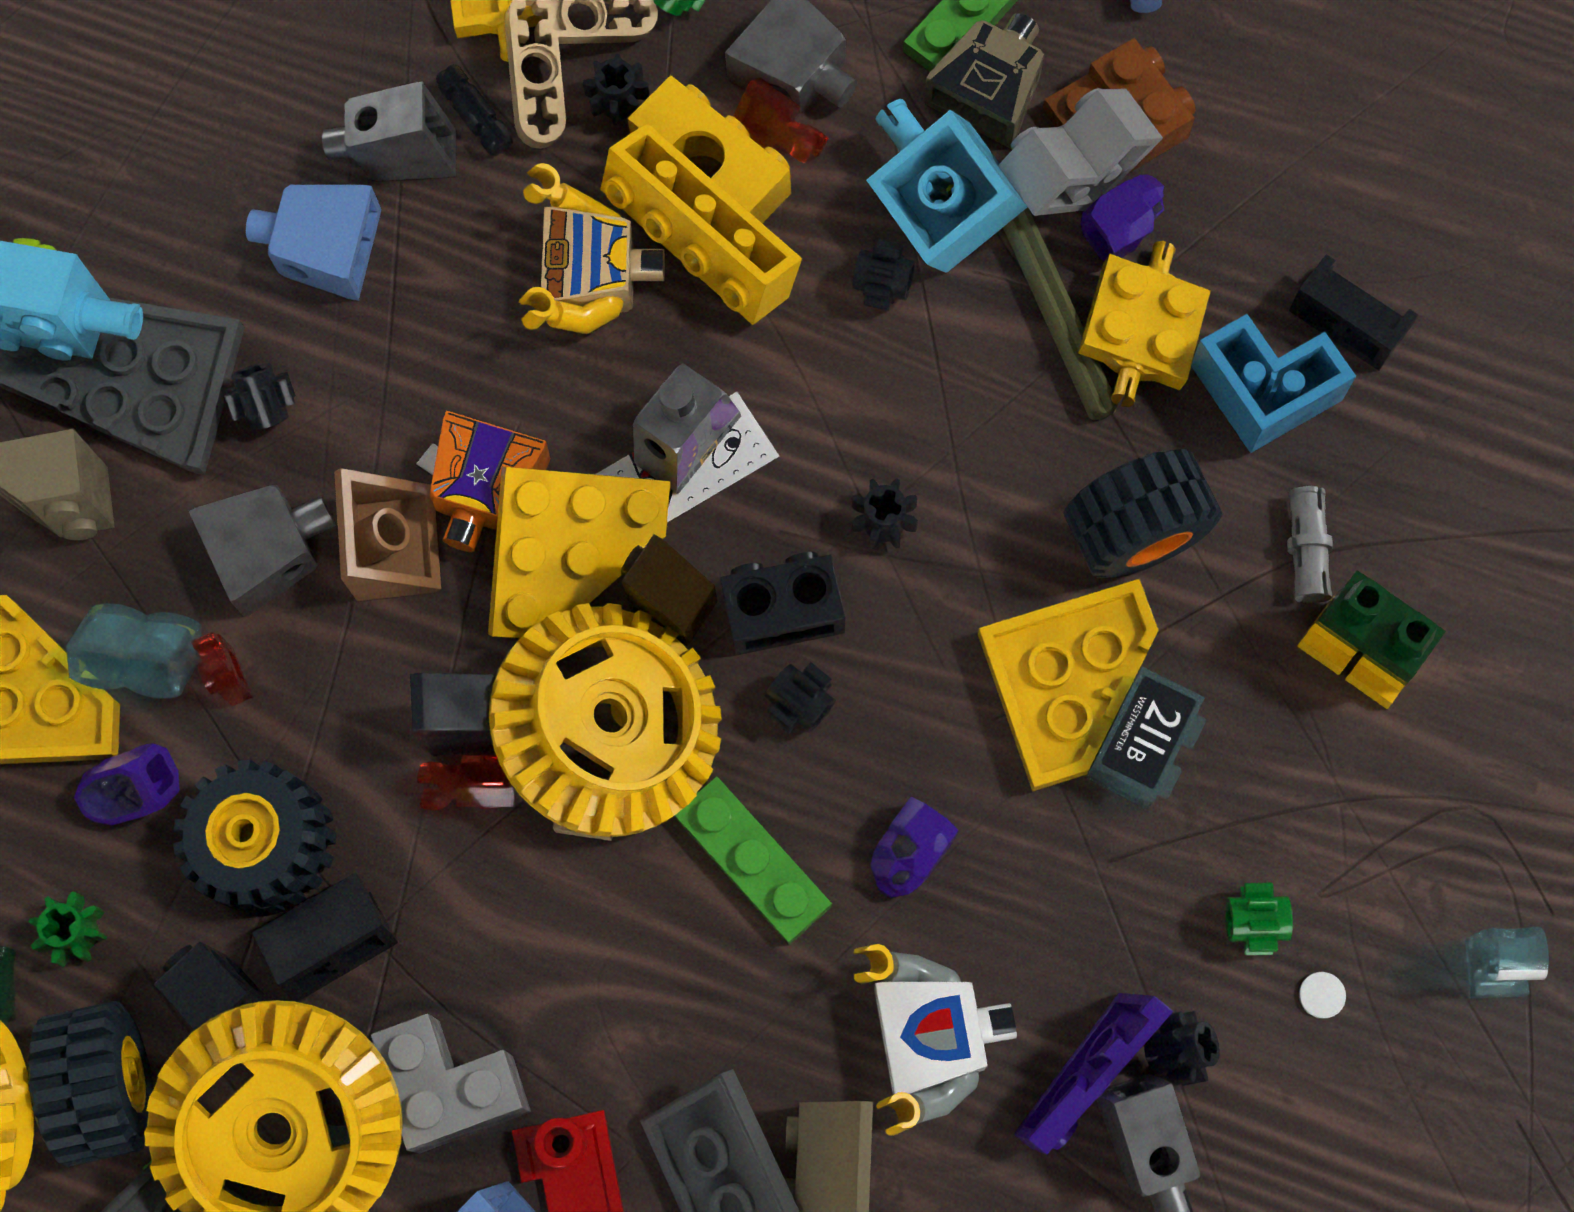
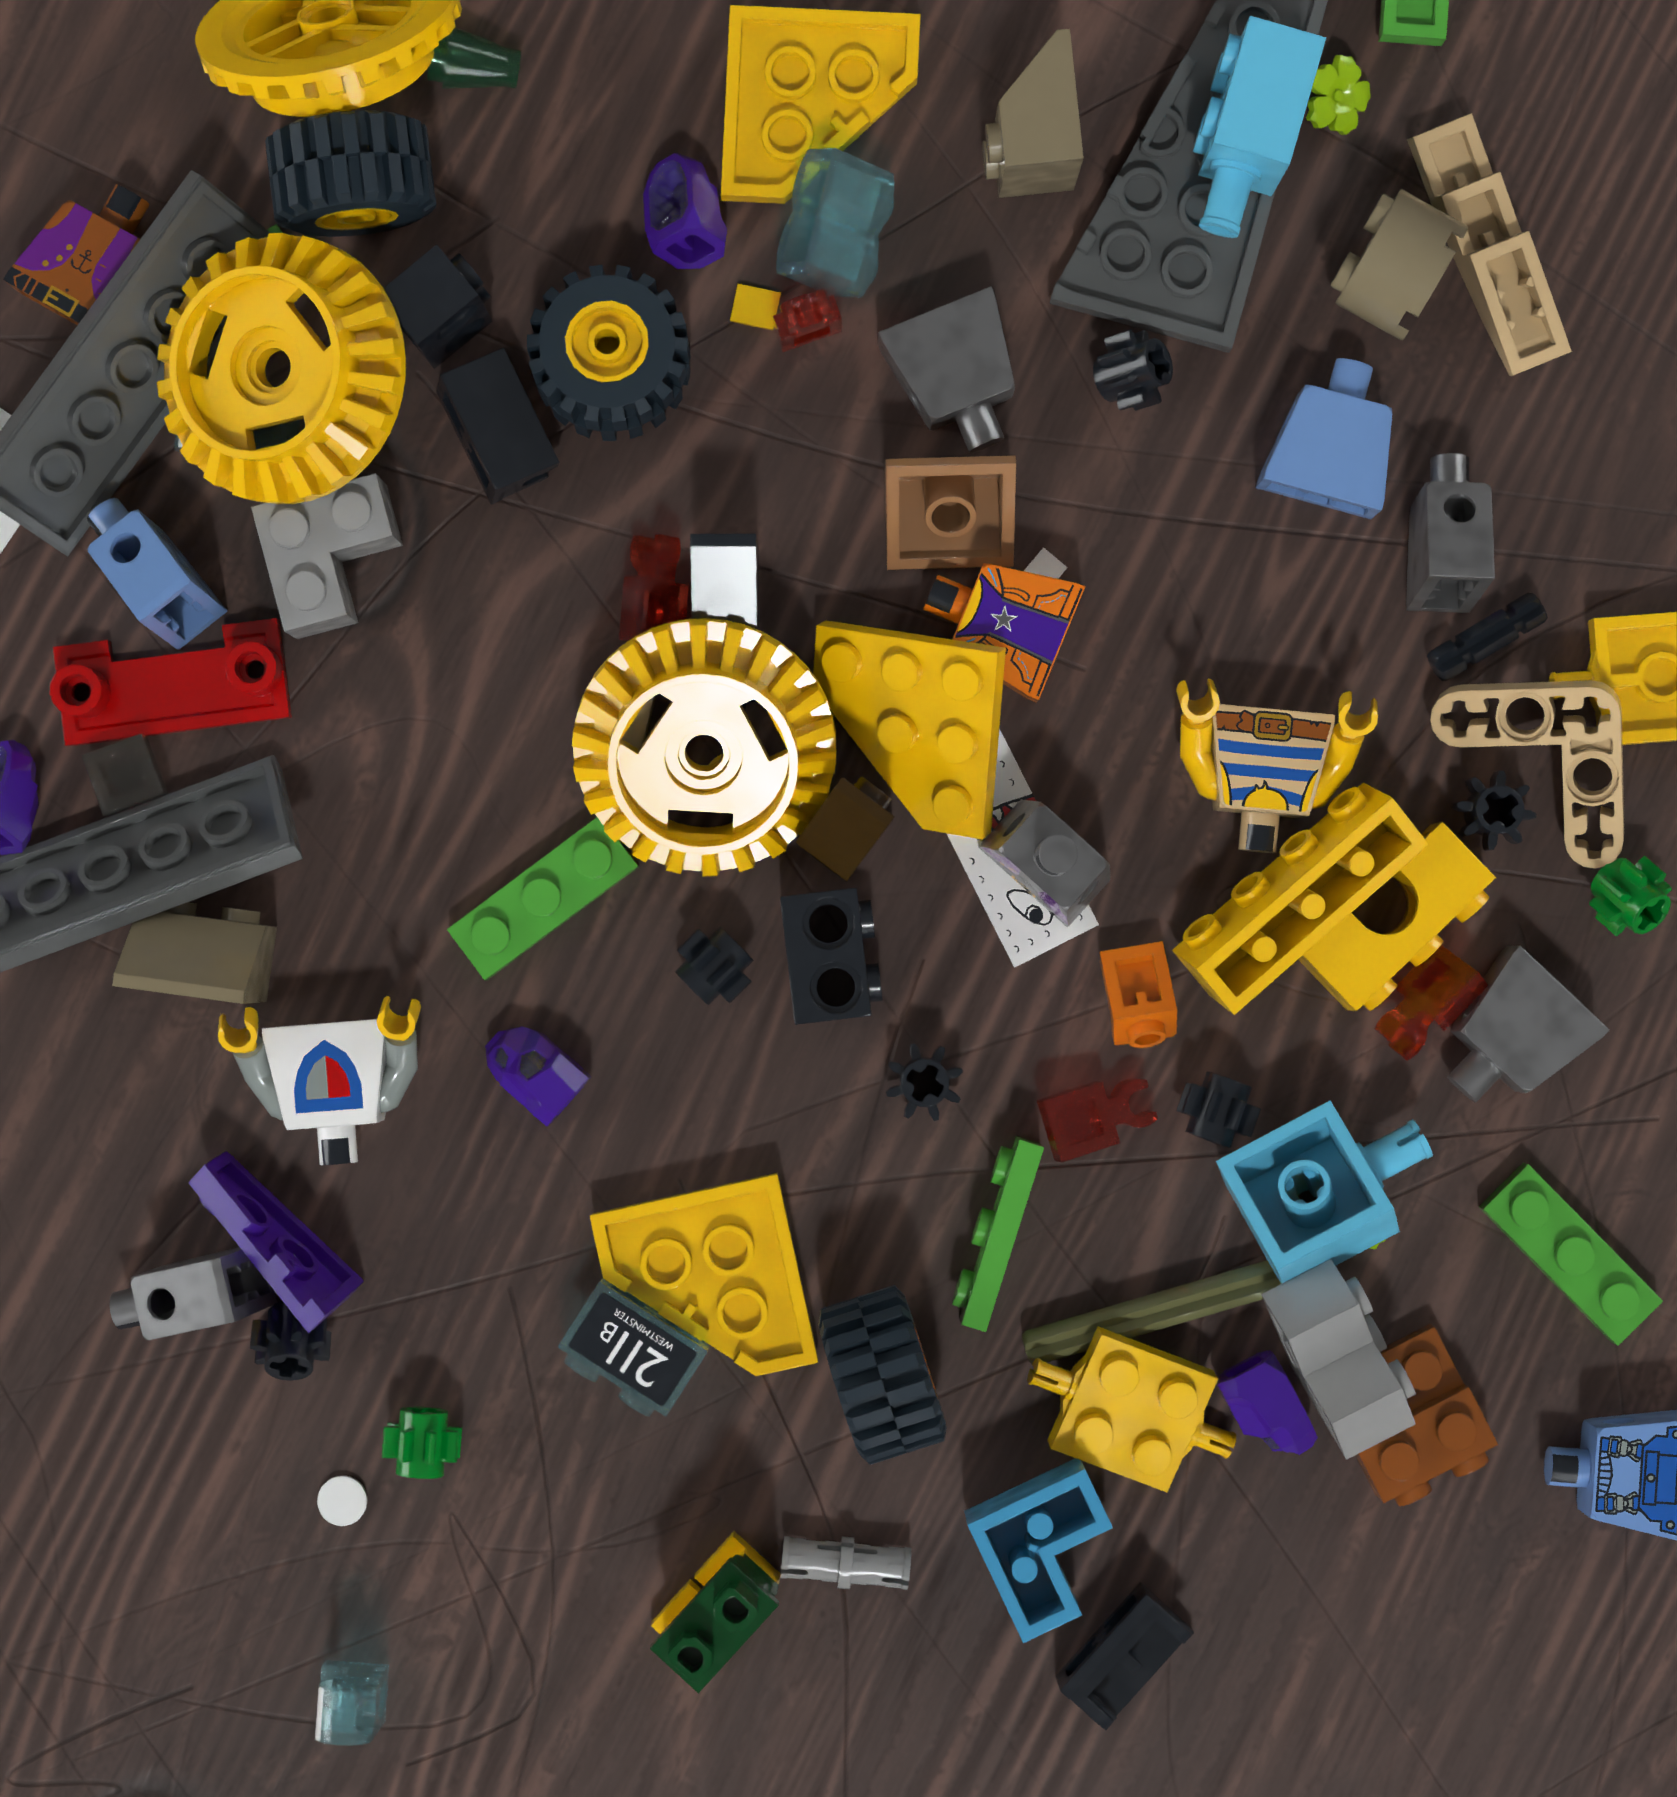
camera: 90 degrees right, 15 degrees up
(52, 927) = (536, 127): green gear -> none
(148, 137) = (1494, 254): none -> tan slope
(164, 191) = (1398, 263): none -> dark tan brick
(213, 723) = (755, 306): none -> yellow window
(792, 346) = (1139, 994): none -> orange bracket
(901, 380) = (1085, 1118): none -> clear red plate
(989, 77) = (1467, 1265): torso -> none
(1008, 440) = (997, 1232): none -> bright green plate

